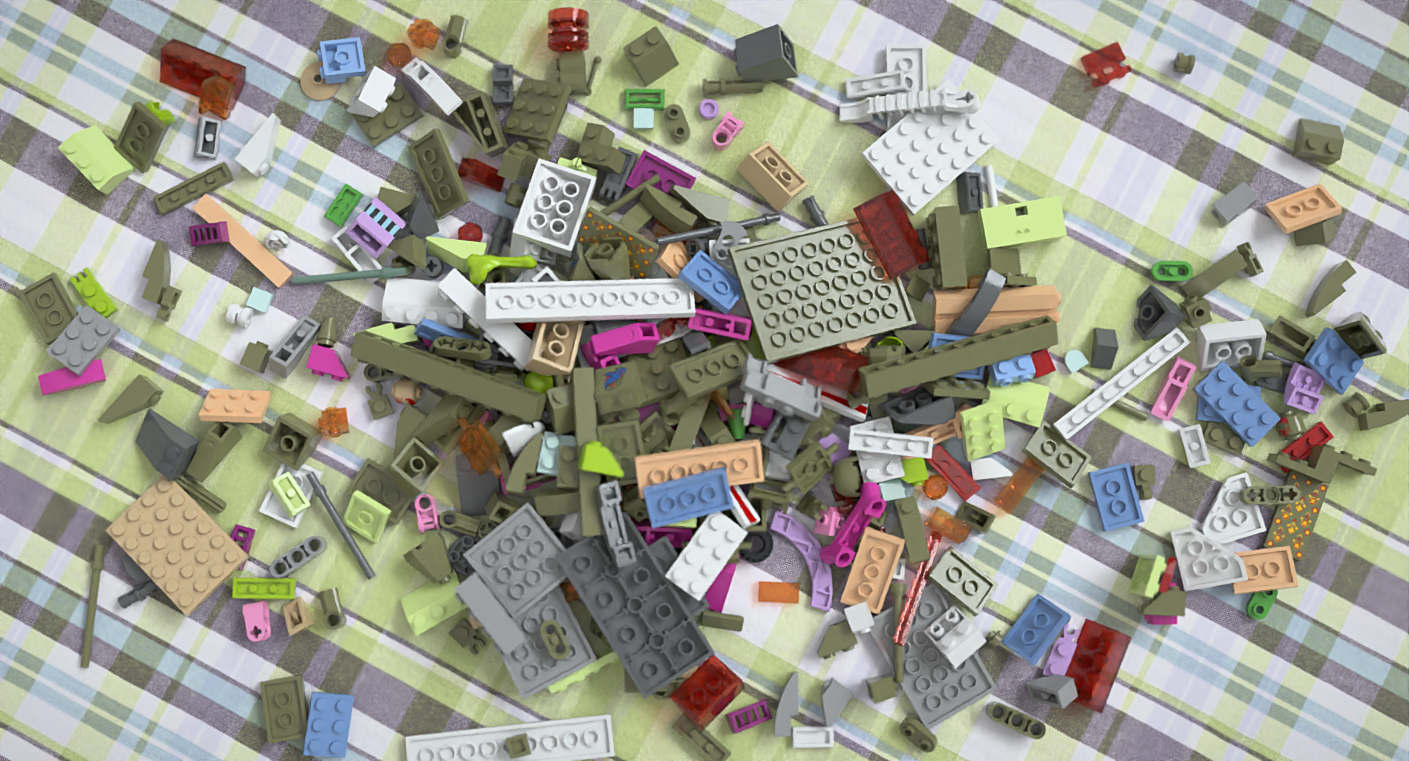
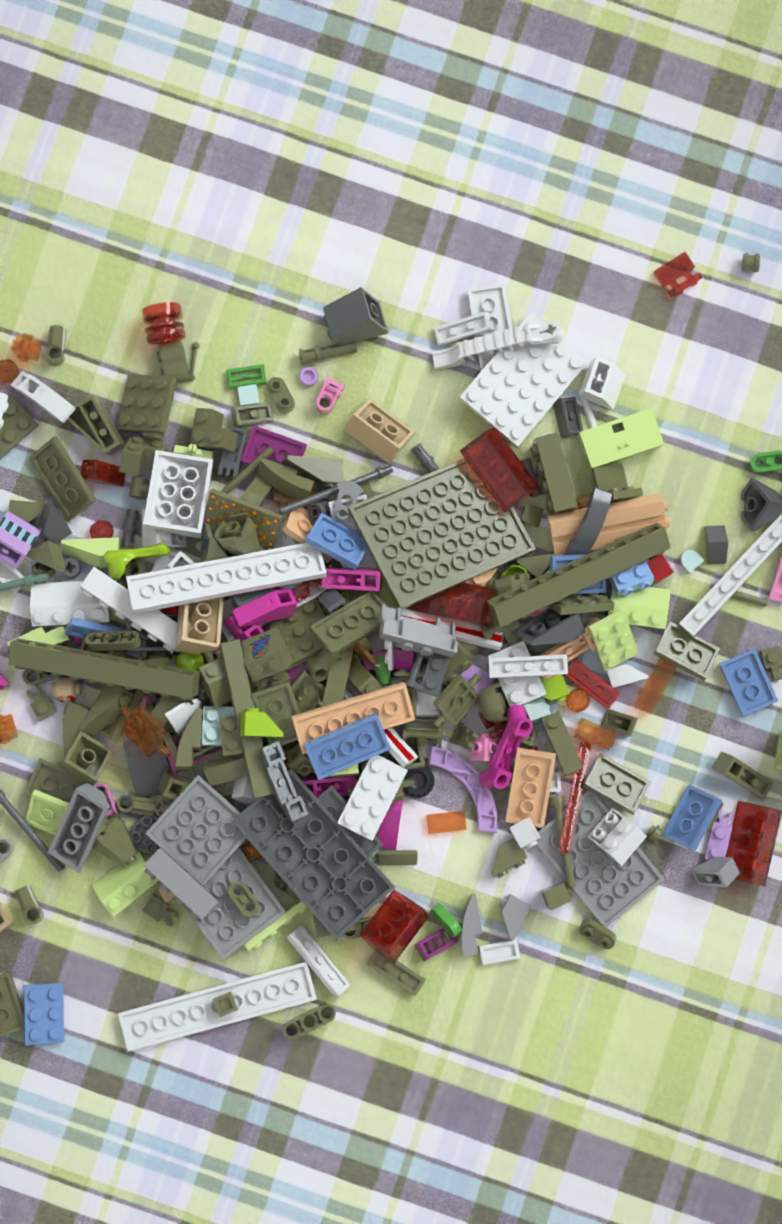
camera: 10 degrees left, 0 degrees up
(396, 536) = (79, 826): none -> light grey slope
(503, 85) = (109, 384): dark grey slope -> none
(622, 716) = (318, 961): none -> white tile
(644, 139) = (251, 414): none -> olive slope
(650, 56) = (245, 335): olive slope -> none
(762, 695) = (446, 920): none -> bright green beam
(1011, 162) = (602, 383): none -> white slope
(1025, 720) = (695, 909): olive beam -> none
(1095, 592) = (742, 774): none -> olive slope

